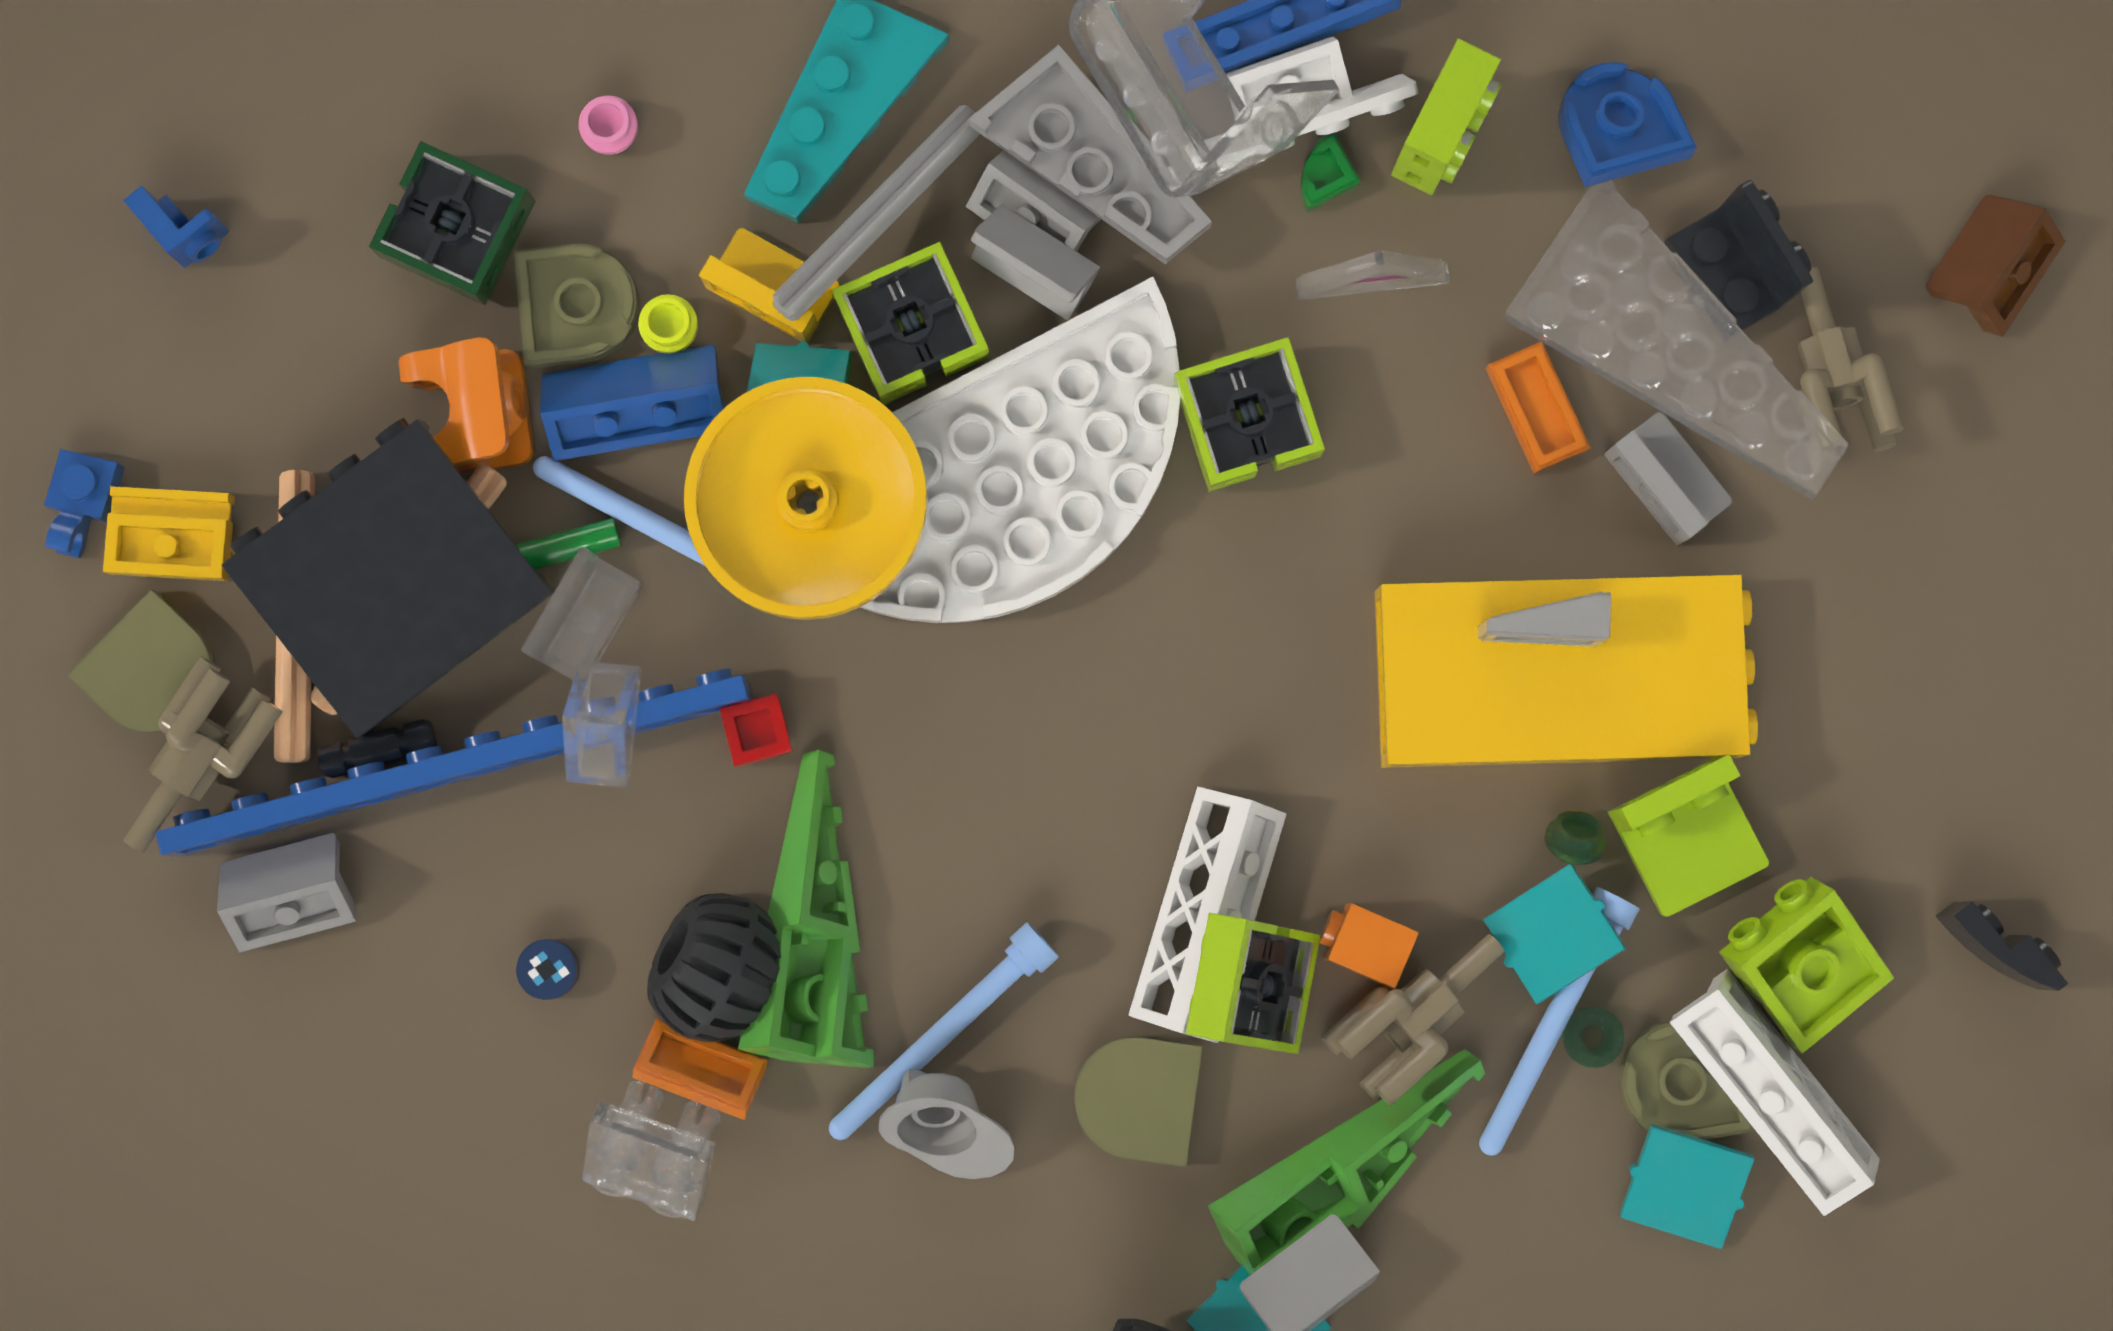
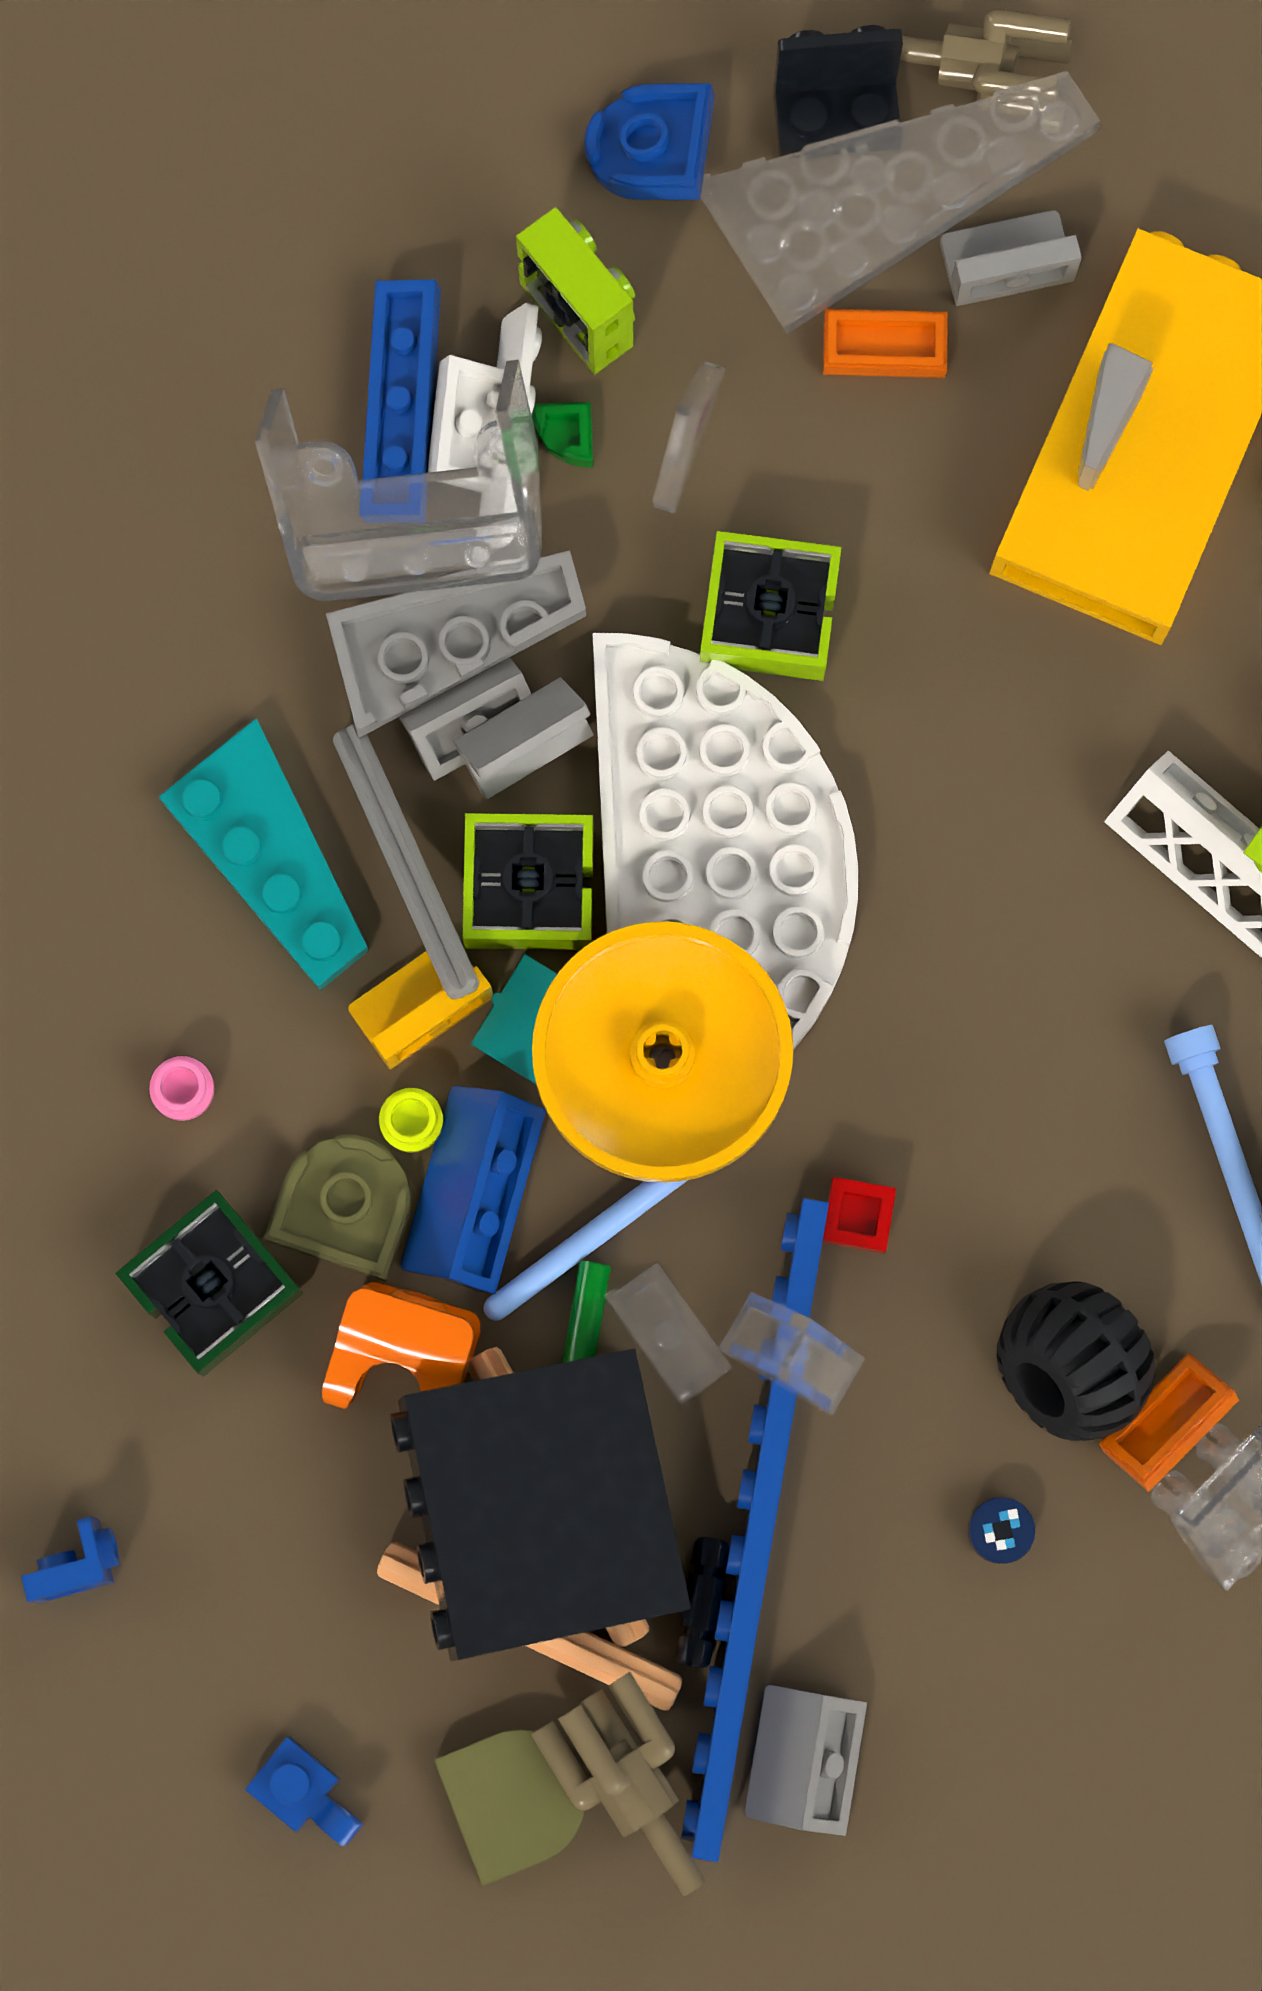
camera: 65 degrees left, 5 degrees down
(168, 533) = (385, 1715): yellow plate -> none
(815, 996) = (1067, 1242): bright green wedge -> none

